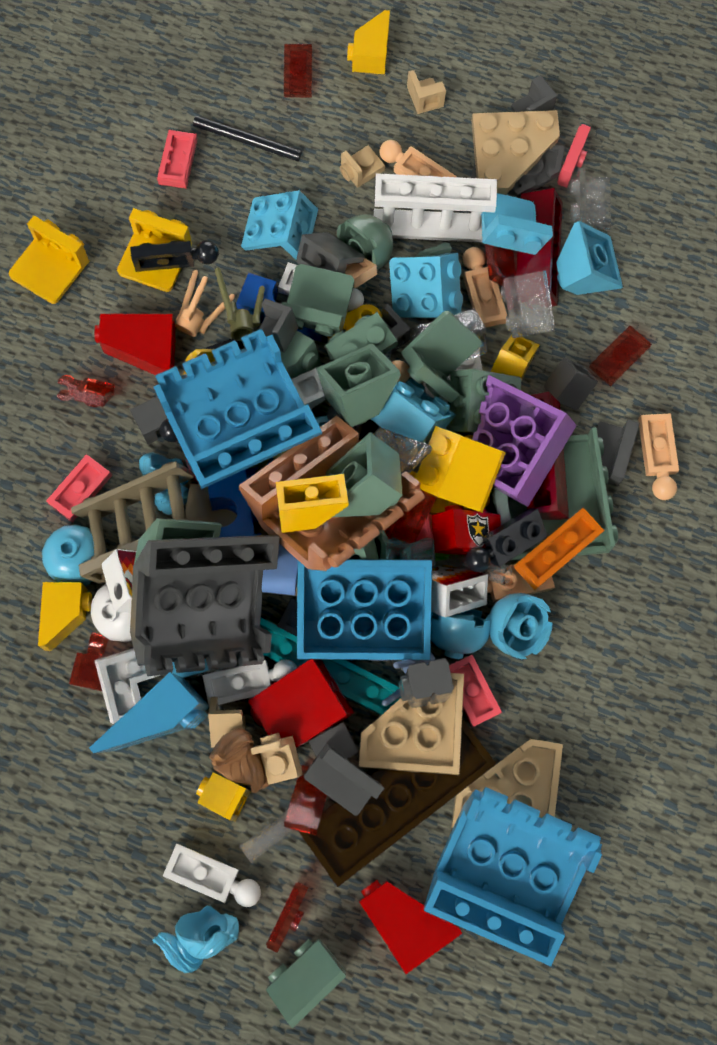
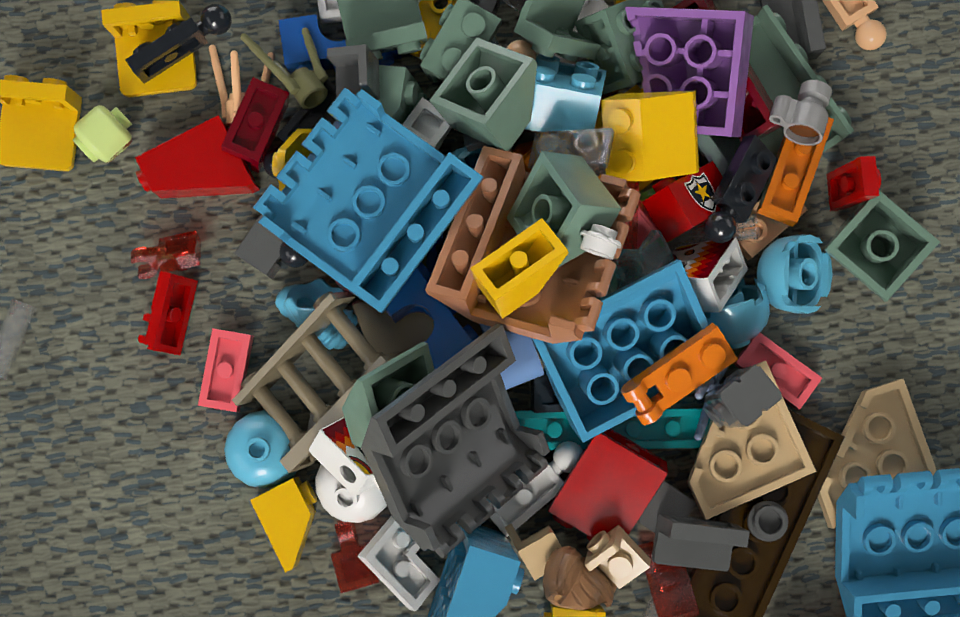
camera: 25 degrees left, 10 degrees up
(63, 429) = (169, 313): none -> red plate
(88, 289) = (103, 133): none -> yellowish green head
(195, 331) = (256, 122): none -> dark red panel
(375, 509) = (600, 241): none -> white plate
(391, 643) = (679, 373): none -> orange plate
(405, 793) = (767, 521): none -> dark grey plate
(581, 517) = (803, 118): none -> light grey piece
(592, 636) = (881, 245): none -> sand green slope
(596, 582) = (853, 183): none -> red plate

